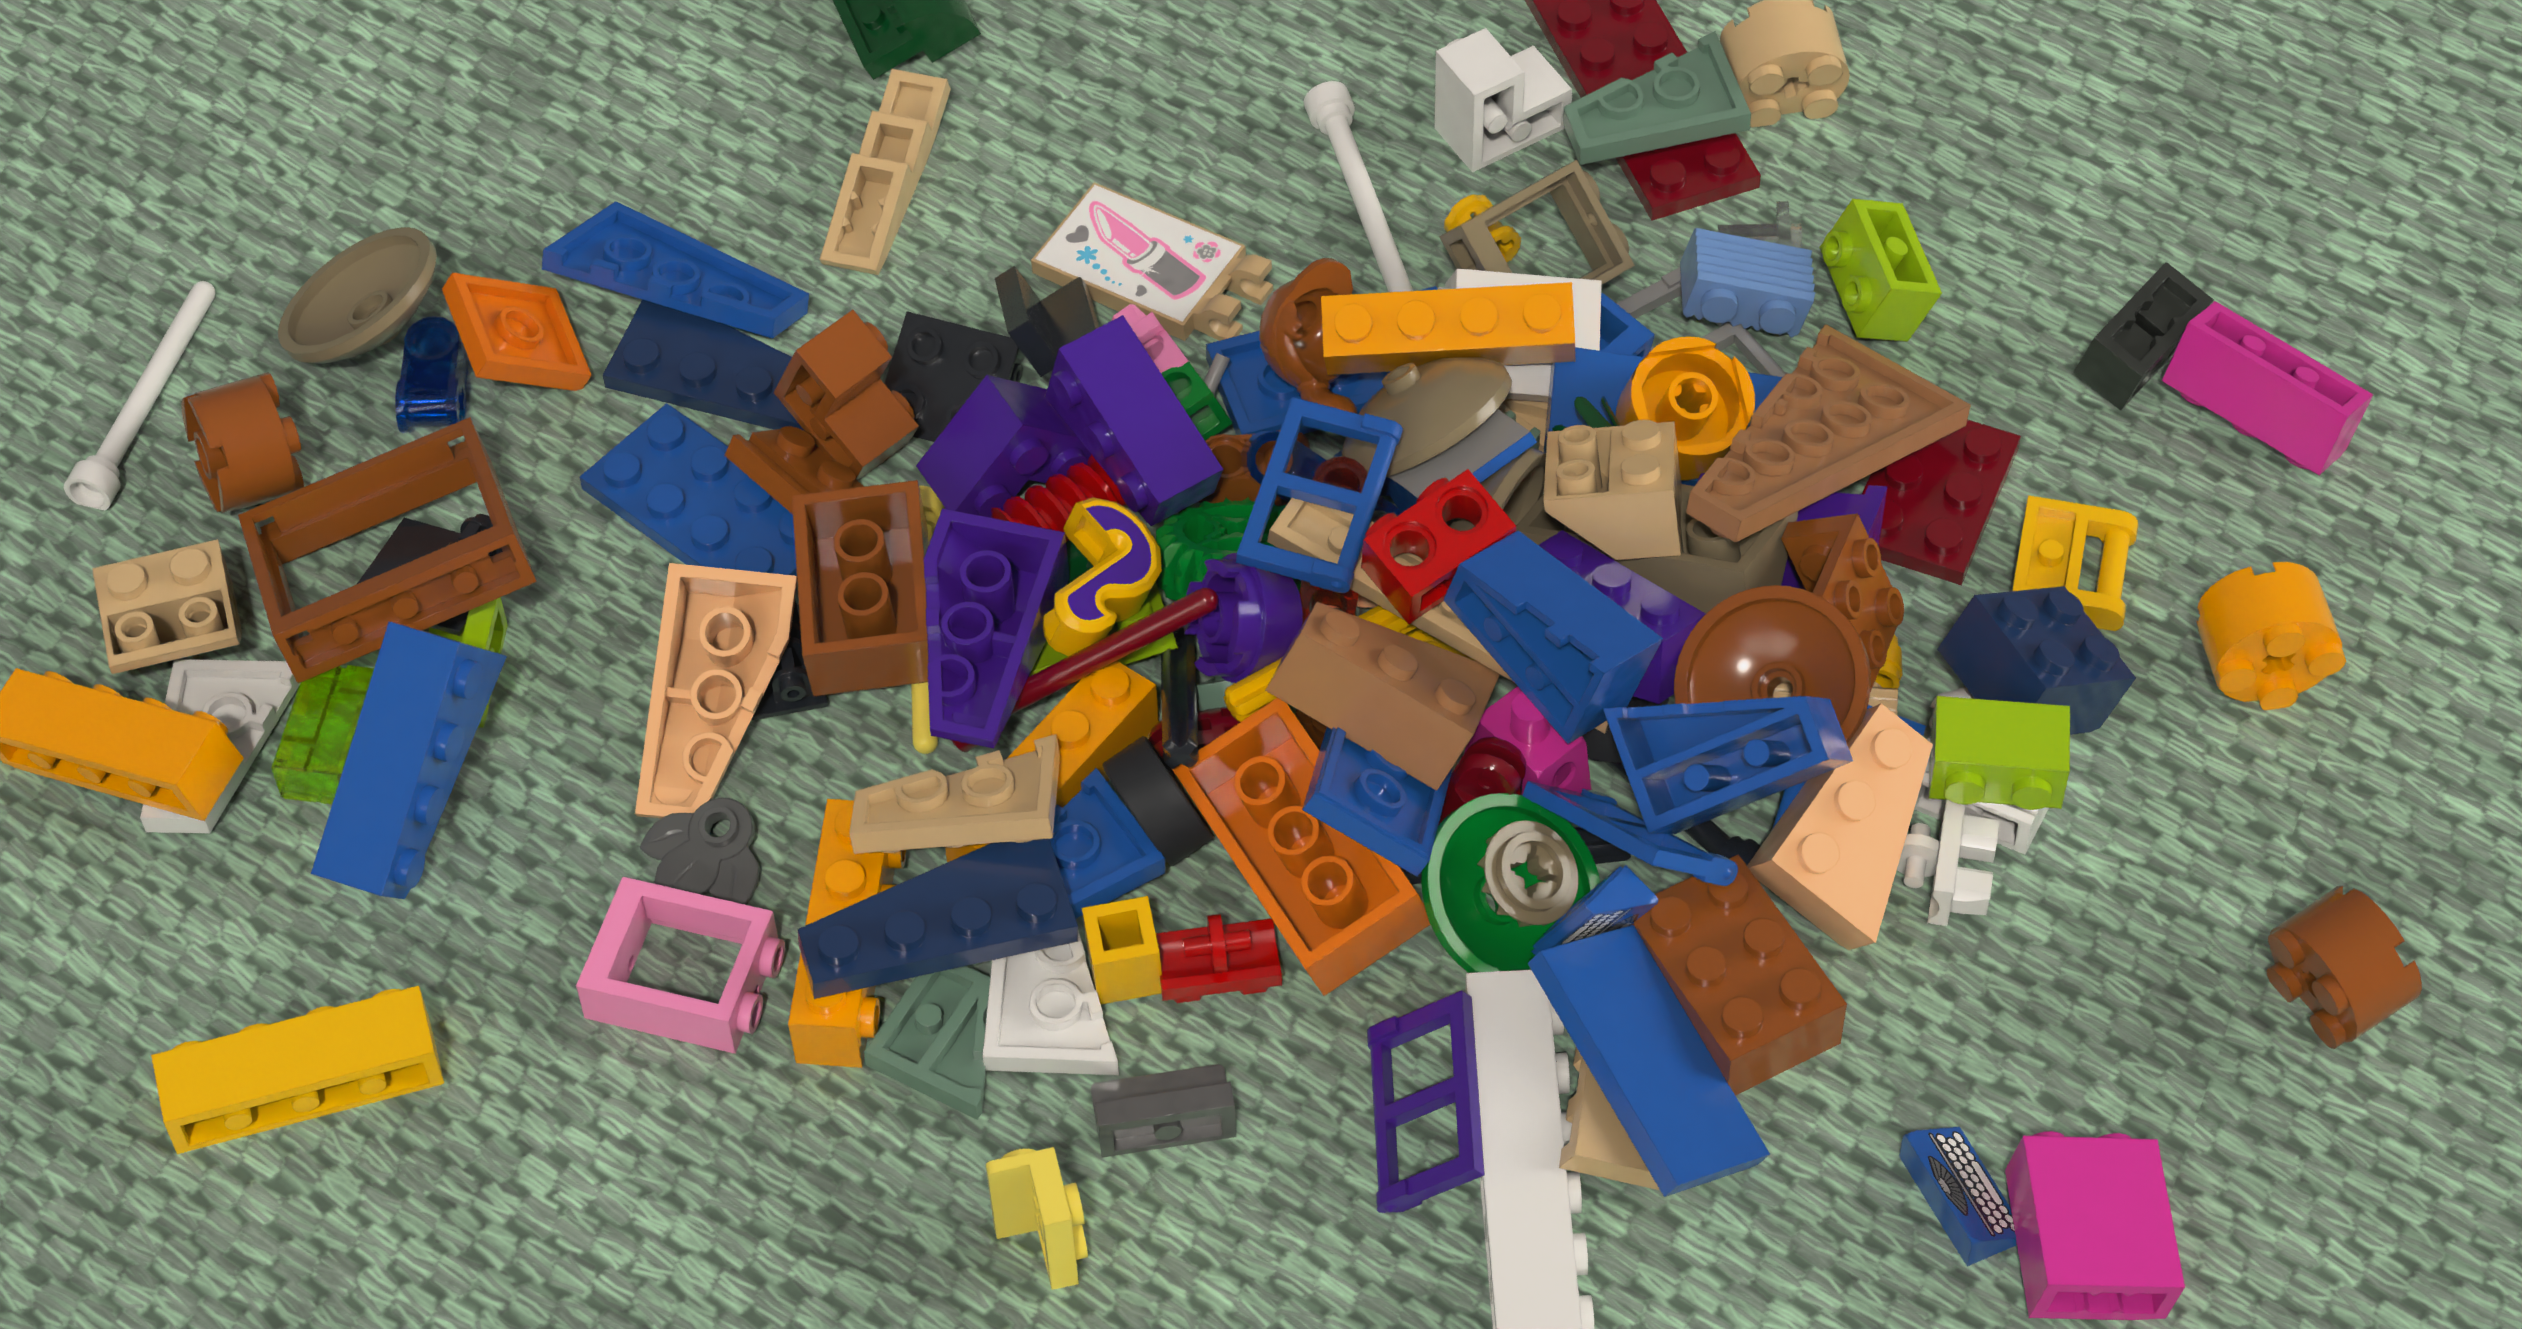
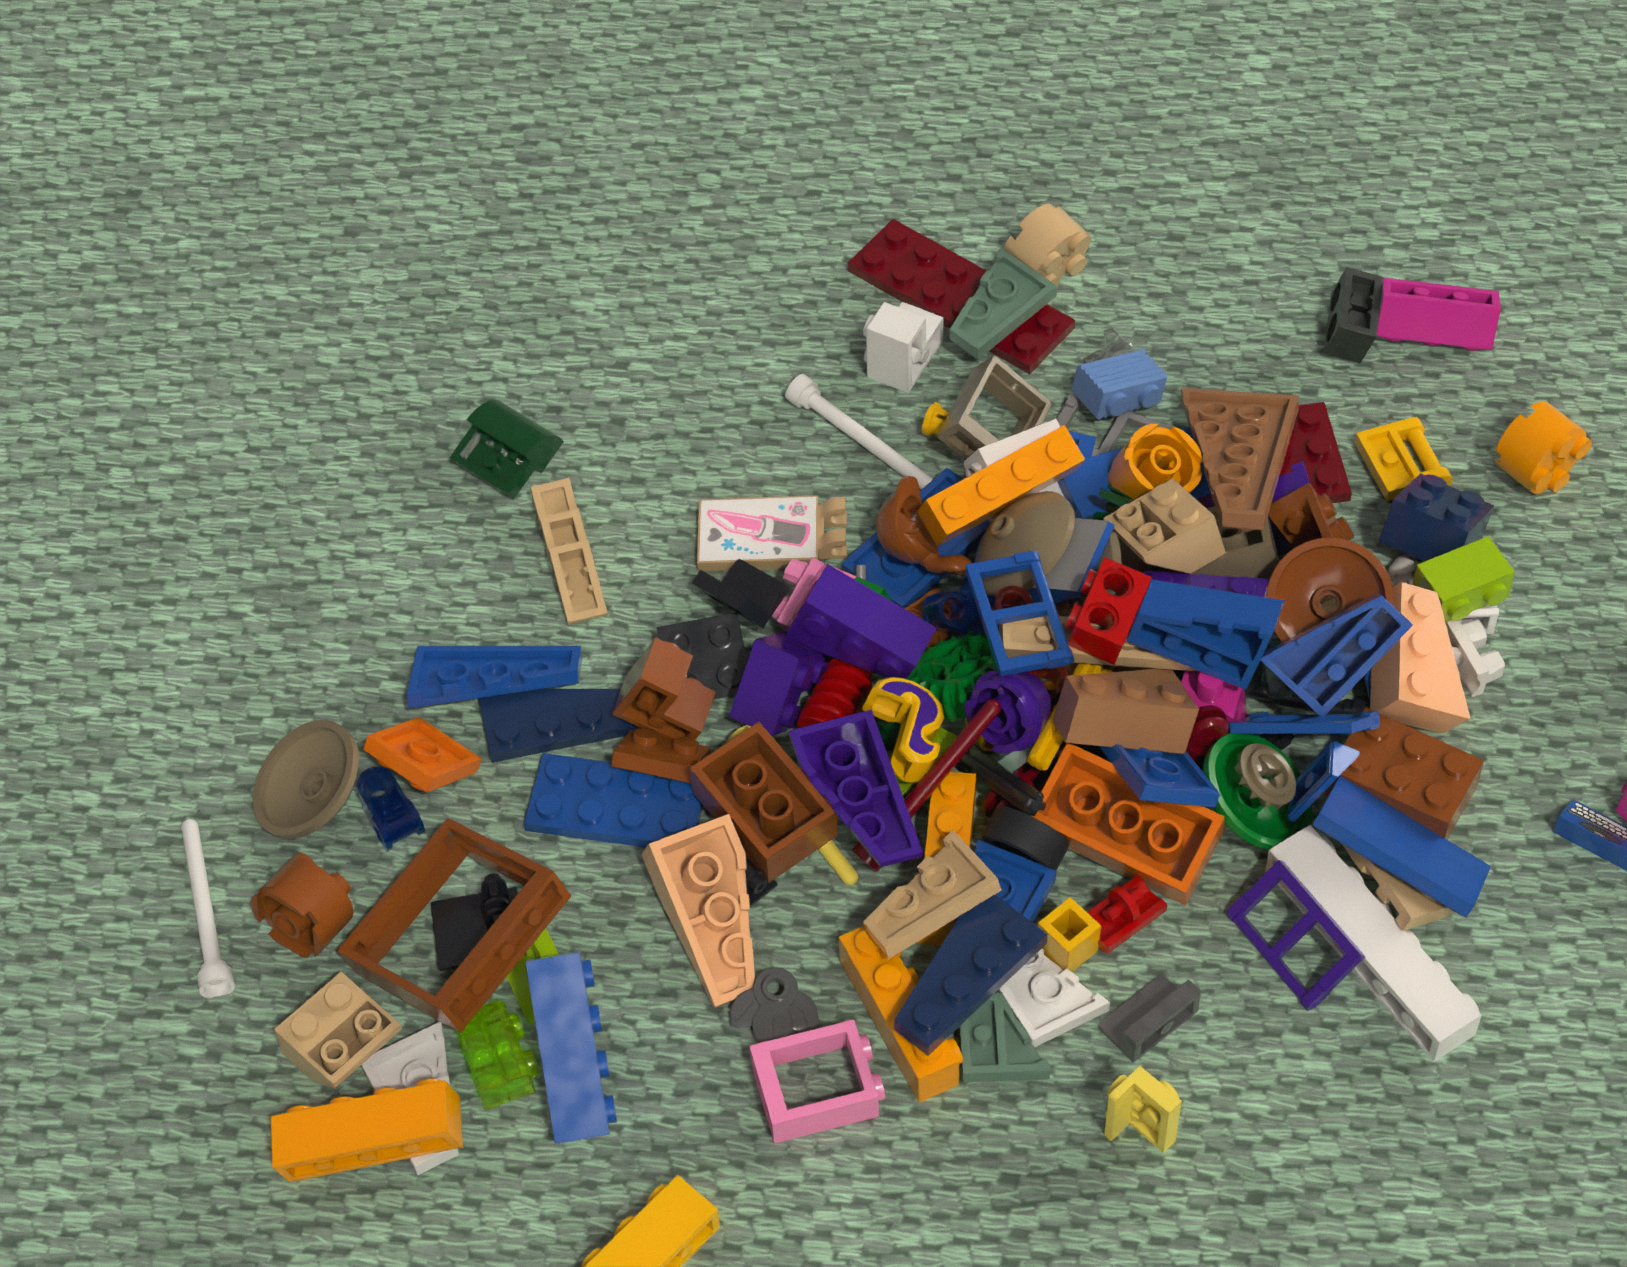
camera: 30 degrees left, 0 degrees up
(1880, 270) = (1187, 343): lime brick -> none

